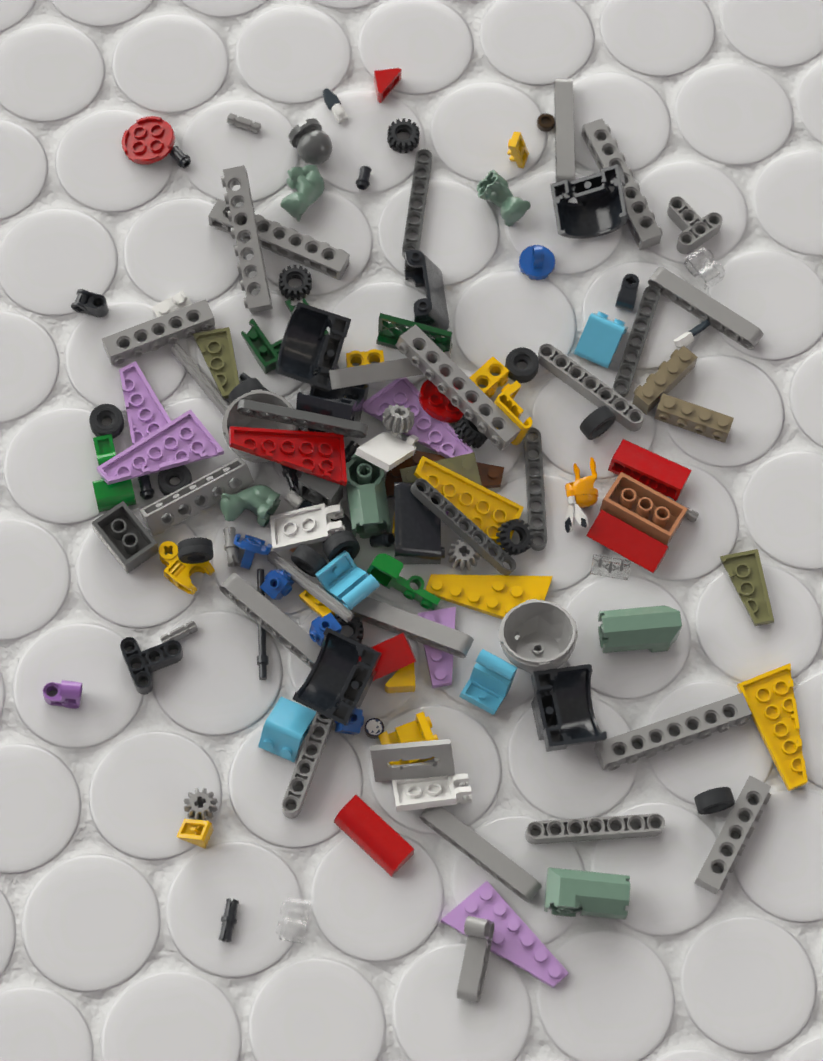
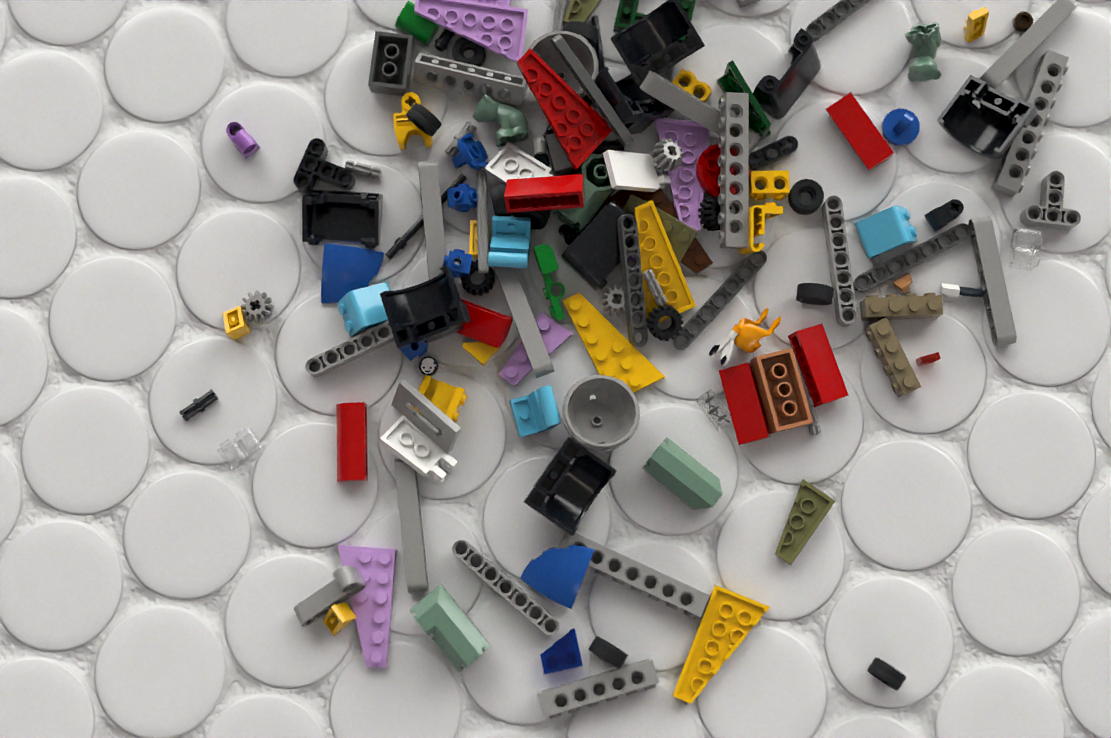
camera: 50 degrees right, 15 degrees up
(201, 678) = (342, 217): none -> black windscreen
(242, 716) = (347, 270): none -> blue brick
(341, 519) = (545, 193): none -> red brick
(473, 352) = (786, 152): none -> black beam
(483, 517) = (654, 287): none -> light grey axle
(497, 972) = (338, 617): none -> yellow slope
(513, 287) = (860, 131): none -> red brick
(622, 779) = (559, 573): none -> blue brick
(648, 363) = (903, 283): none -> medium nougat tile
(684, 837) = (562, 654): none -> clear blue wing
(717, 399) = (931, 358): none -> clear red tile

